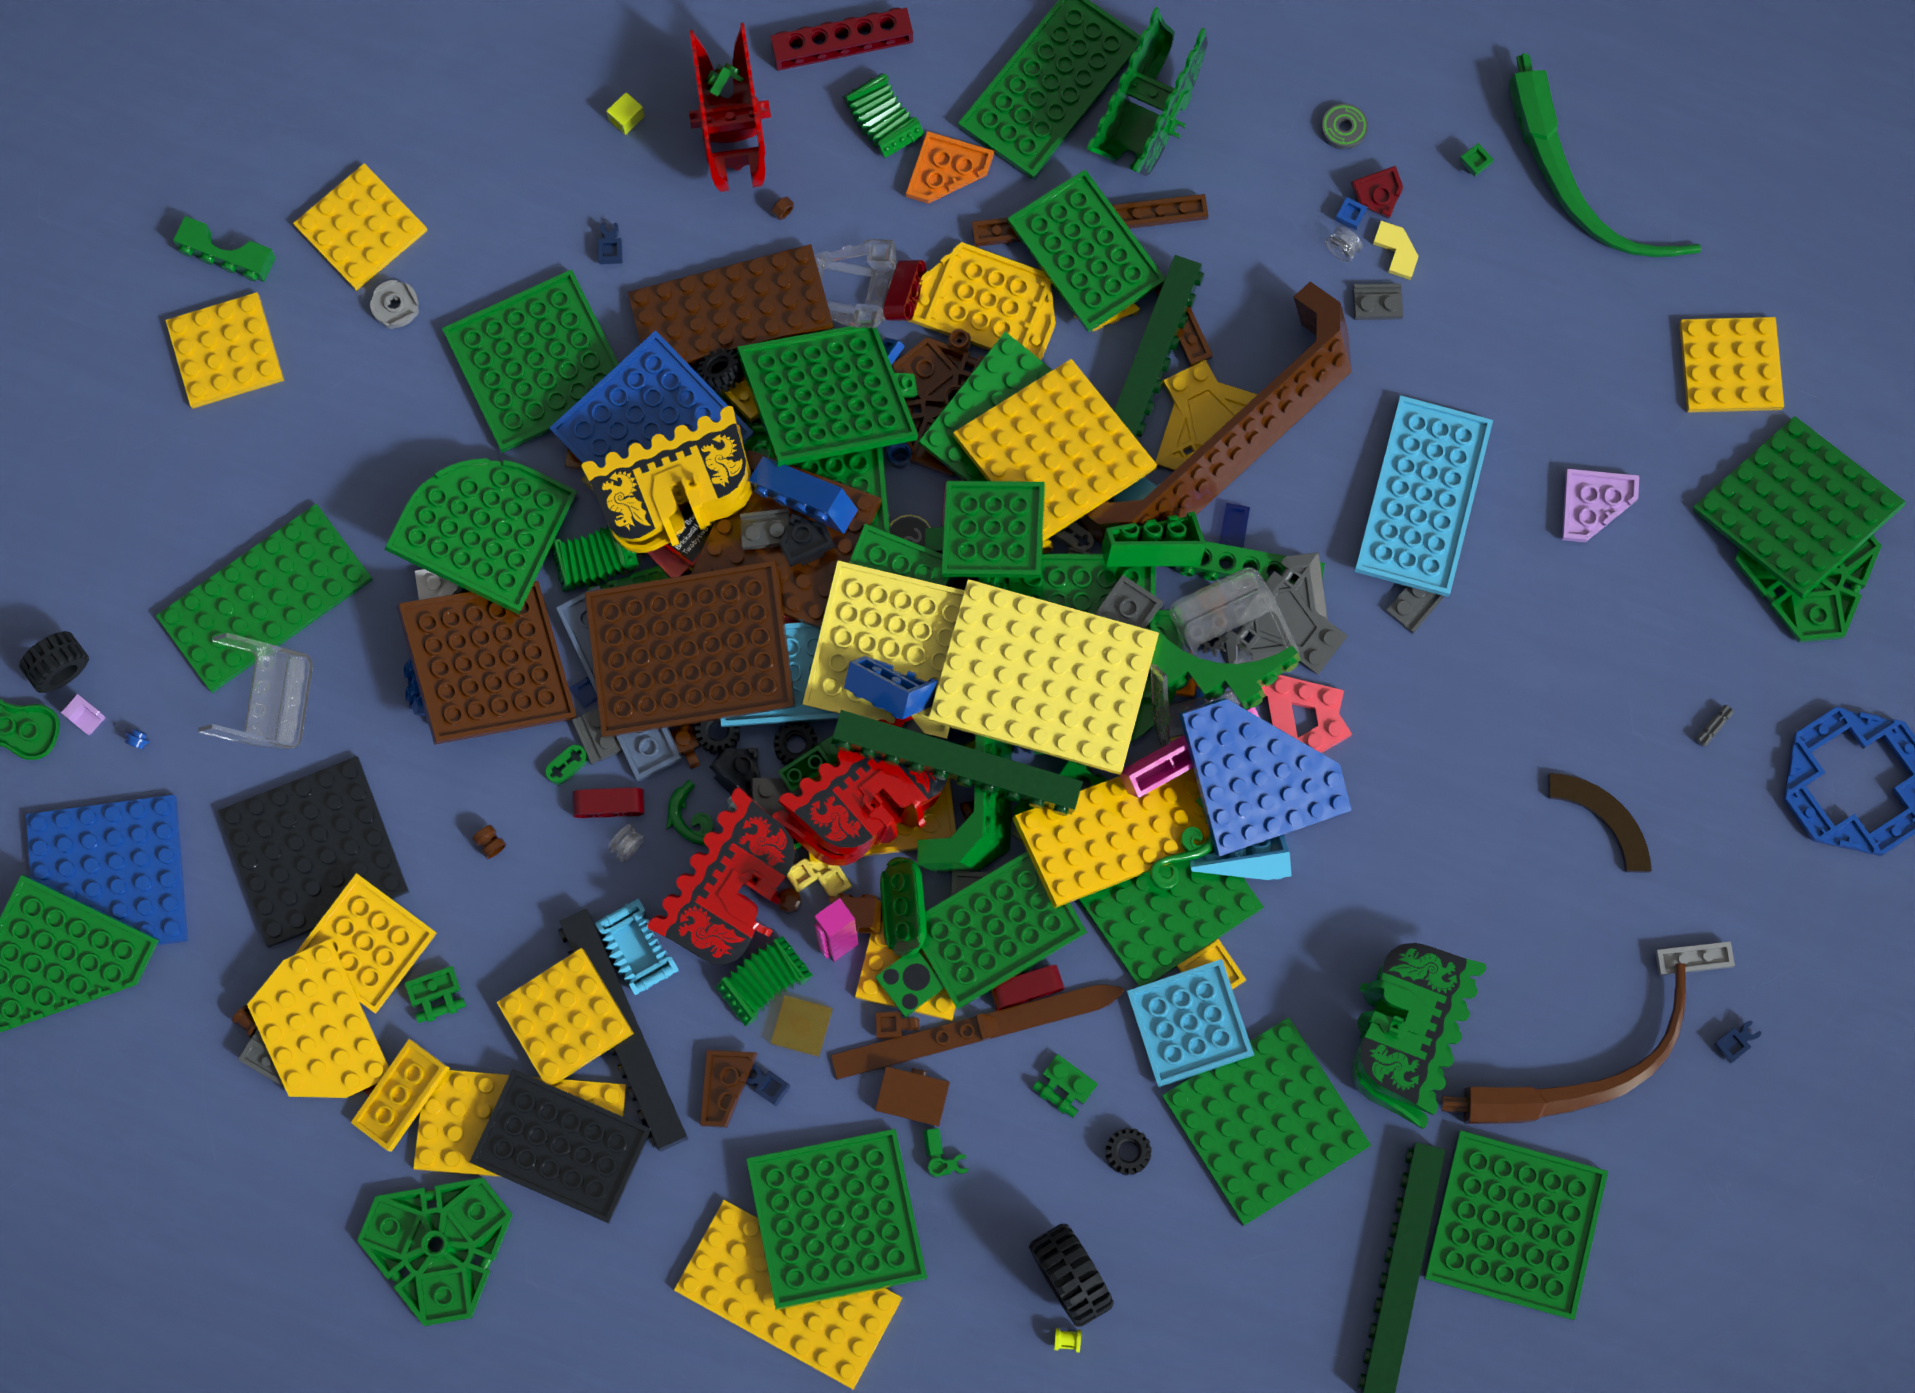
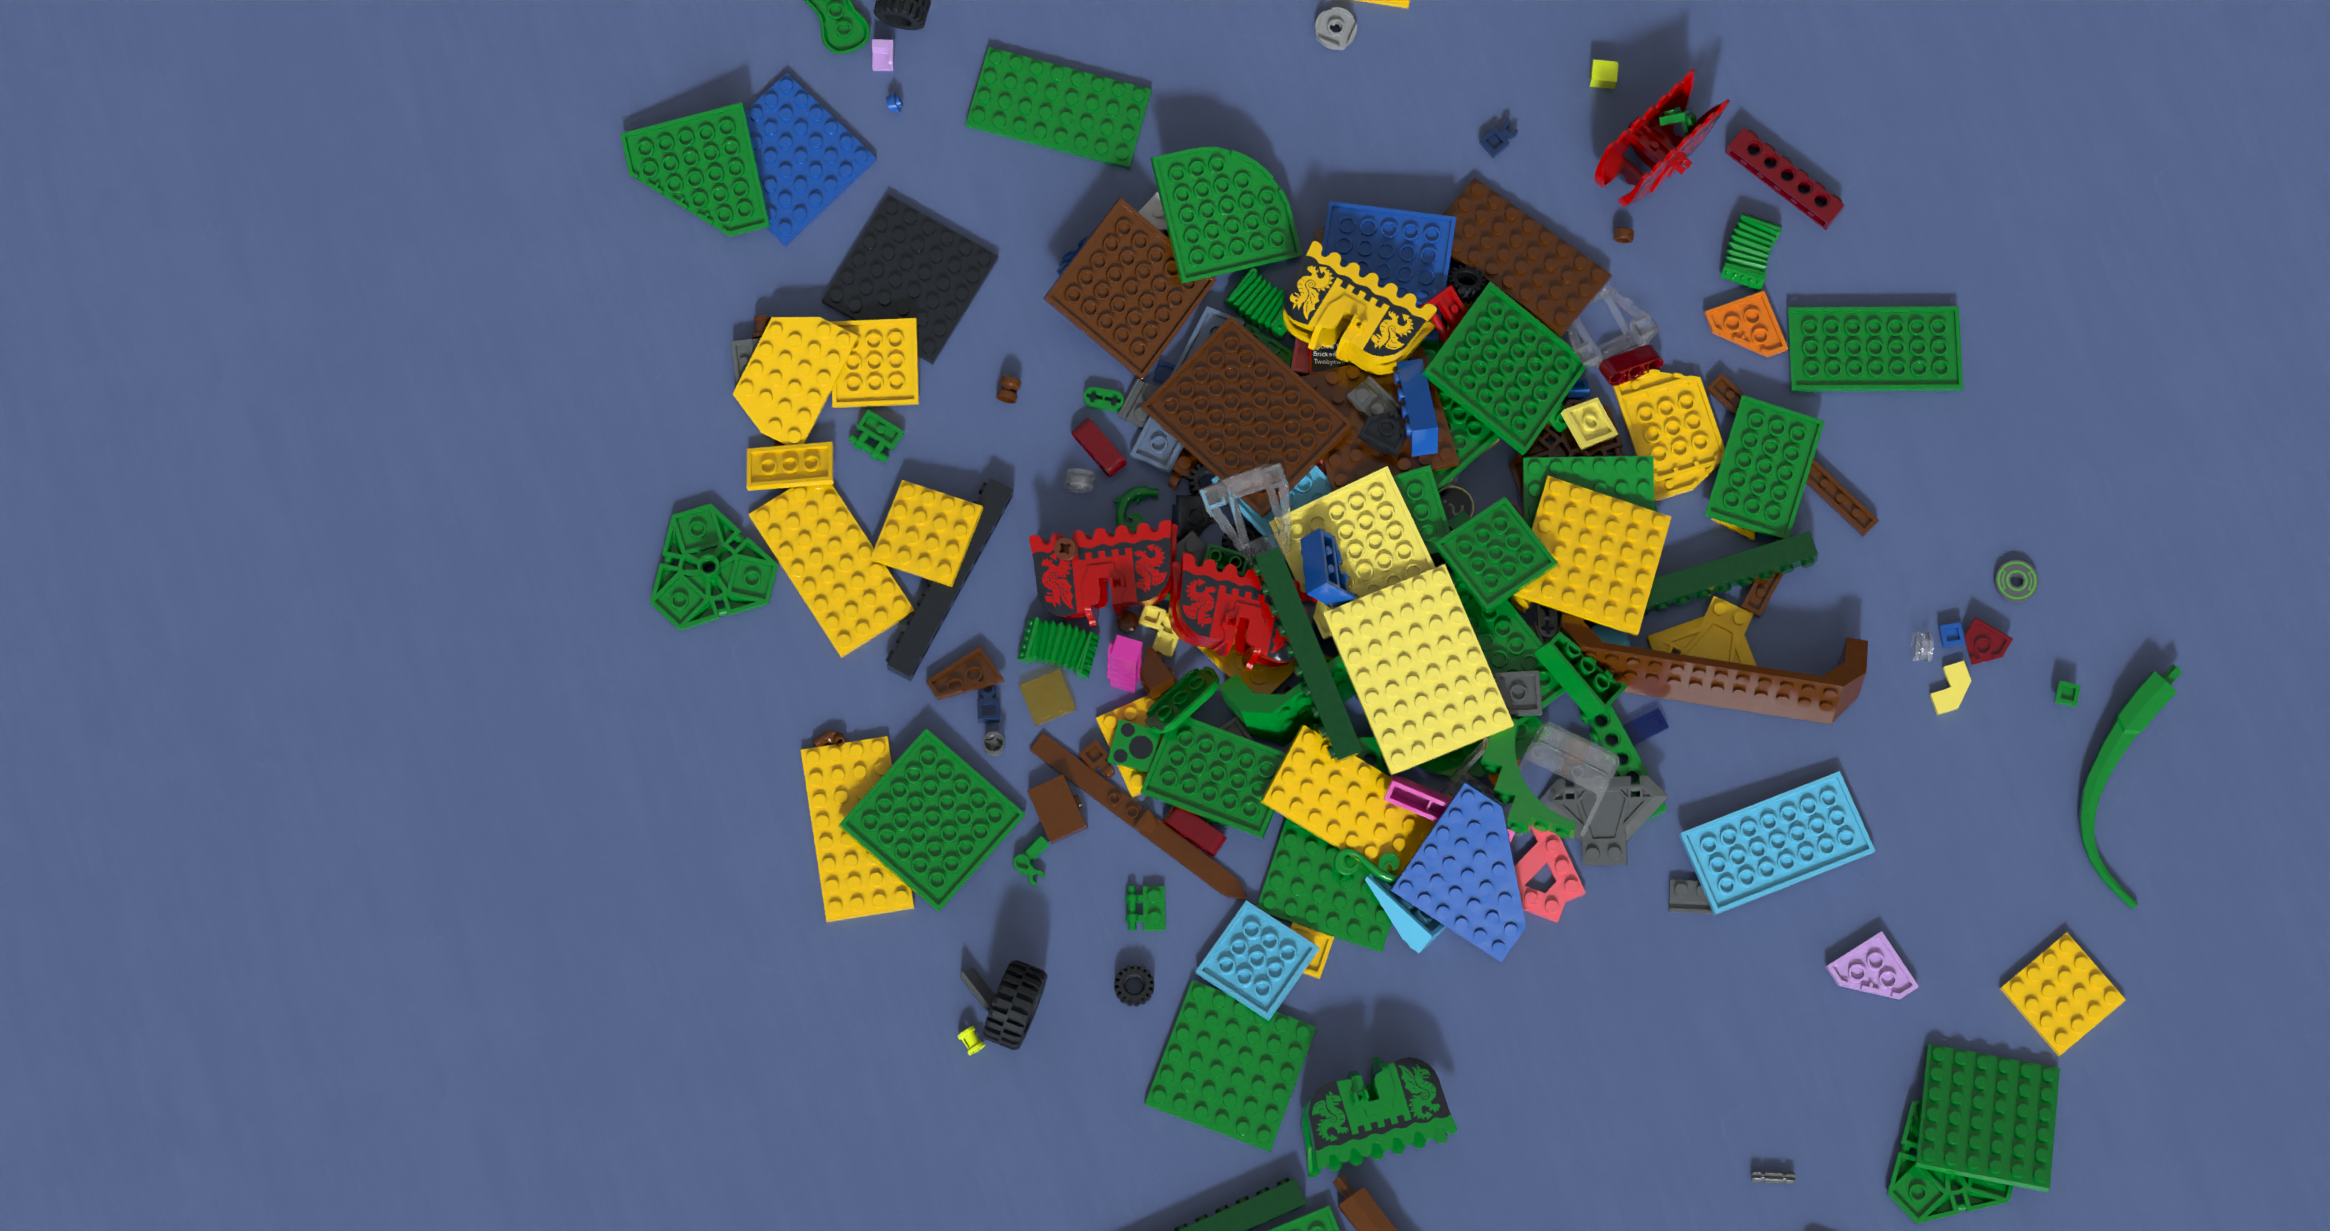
camera: 50 degrees right, 0 degrees up
(276, 696) = (995, 170): clear windscreen -> none
(531, 357) = (1373, 150): green plate -> none
(560, 1146) = (838, 598): black plate -> none
(634, 947) = (1010, 543): medium azure piece -> none
(684, 1253) = (829, 737): none -> reddish brown arm
(689, 899) = (1068, 552): none -> copper wheel
(740, 398) = (1451, 309): none -> red plate
(746, 713) = (1245, 483): none -> clear windscreen
(808, 1107) = (991, 741): none -> dark grey wheel
(899, 448) = (1505, 447): dark blue piece -> none
(930, 363) = (1589, 423): none -> light yellow plate
(956, 335) = (1625, 425): reddish brown plate -> none
(1024, 1295) = (978, 988): none -> dark grey slope
(1134, 127) = (1901, 427): green animal -> none
(1219, 646) = (1545, 779): dark grey gear -> none
(1377, 301) = (1900, 704): dark grey plate -> none
(1610, 812) = (1647, 1147): dark brown tile -> none

